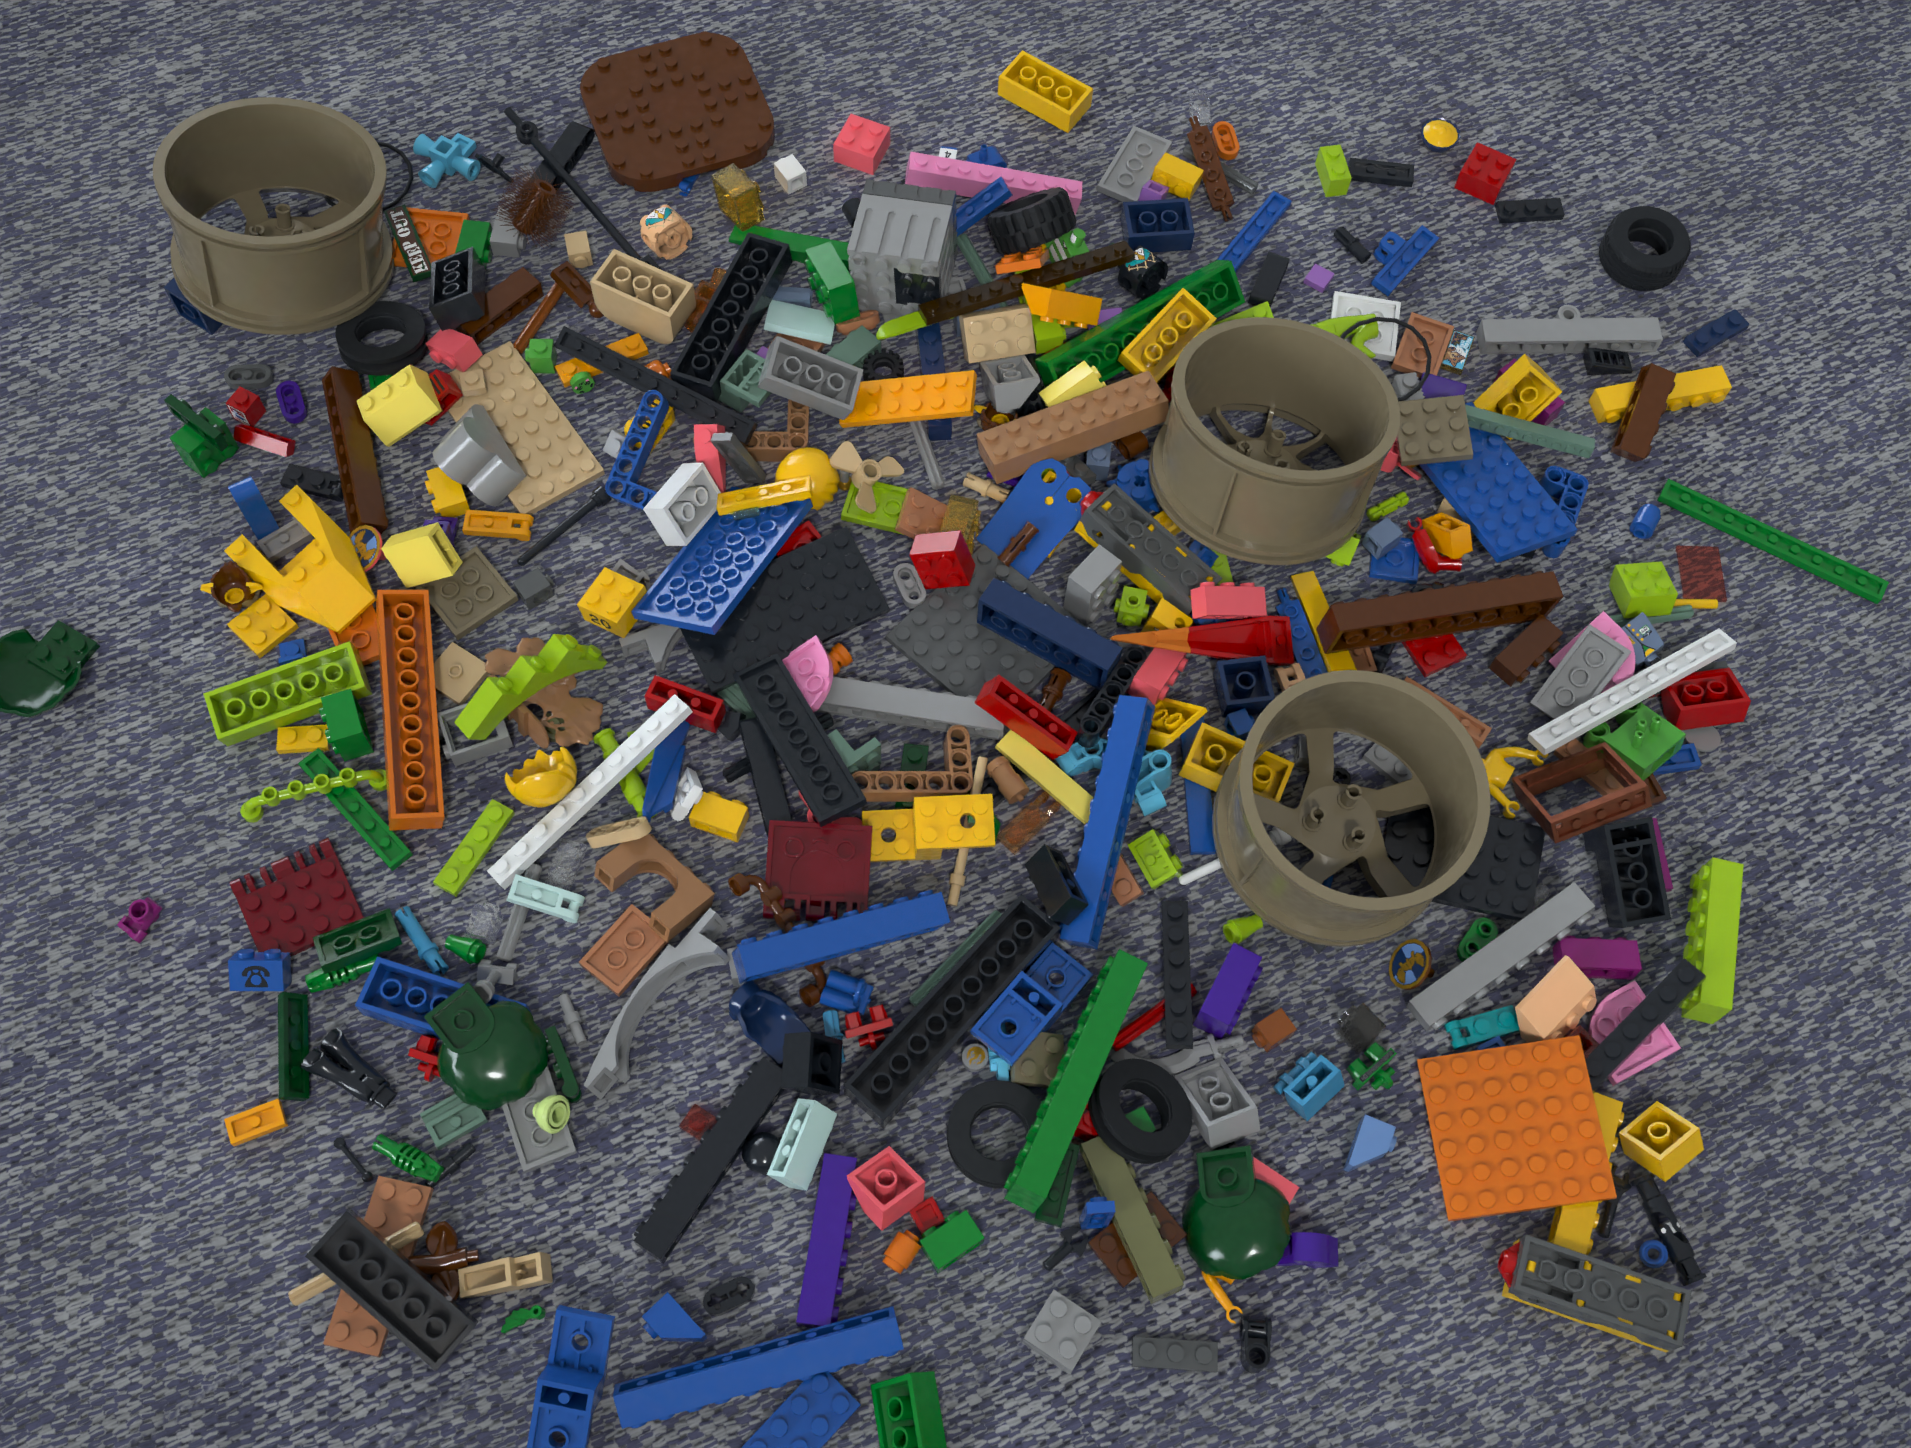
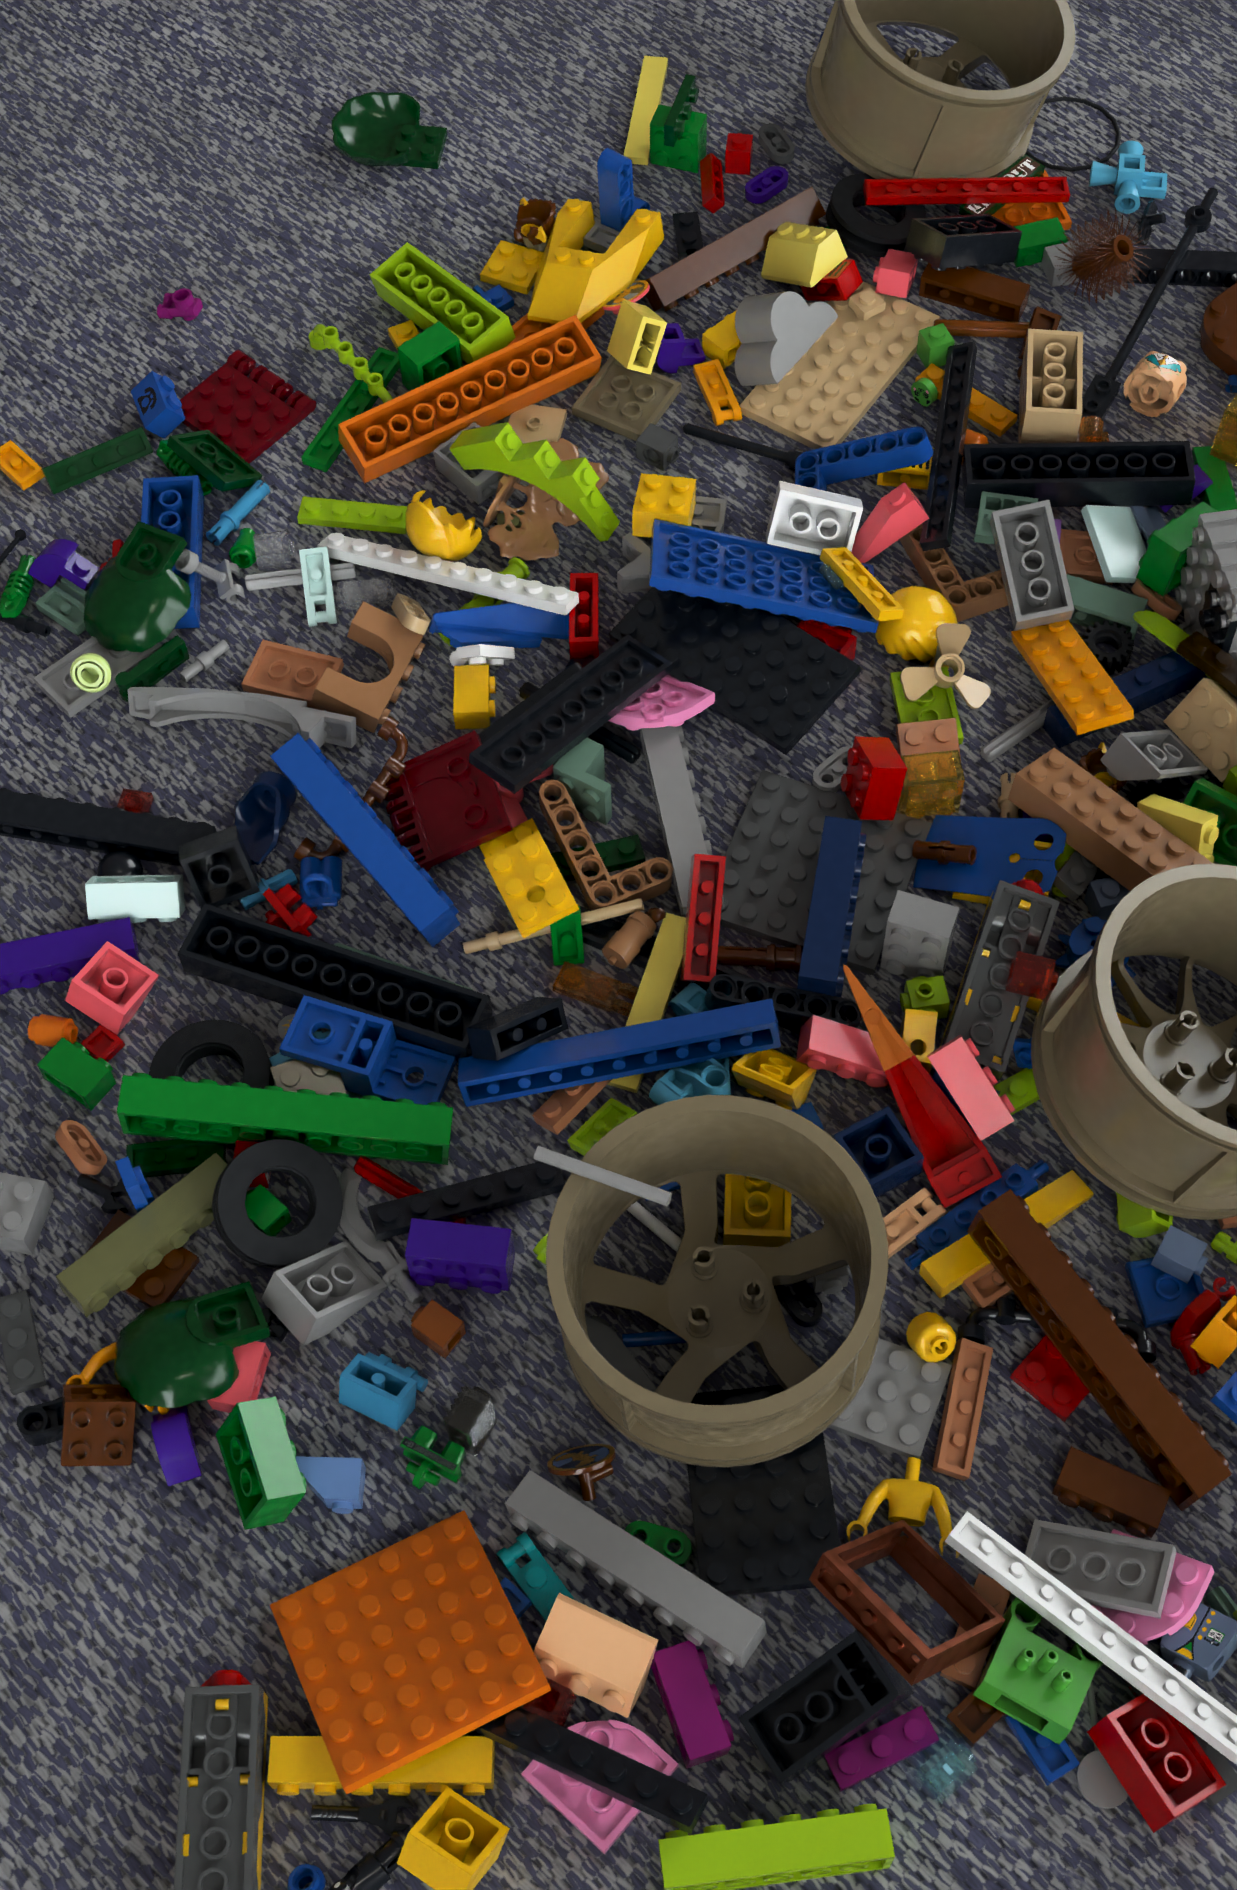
camera: 75 degrees right, 5 degrees down
(140, 457) = (645, 105): none -> light yellow tile
(361, 1079) = (83, 523): black piece -> none
(400, 266) = (966, 190): none -> red tile
(404, 1108) = (60, 560): none -> dark purple brick
(578, 249) = (1091, 321): tan brick -> none
(738, 457) = (898, 544): dark grey plate -> none
(839, 657) = (707, 733): orange wheel -> none
(999, 750) = (656, 914): none -> reddish brown piece
(1021, 1257) = (81, 1147): none -> nougat plate
(1167, 525) = (1031, 975): none -> clear red brick
(1274, 1301) = (97, 1425): none -> reddish brown bracket
(1283, 838) = (603, 1176): none -> light grey bar
(1349, 1188) = (261, 1462): none -> green brick
(1679, 820) = (947, 1770): none -> clear light blue brick

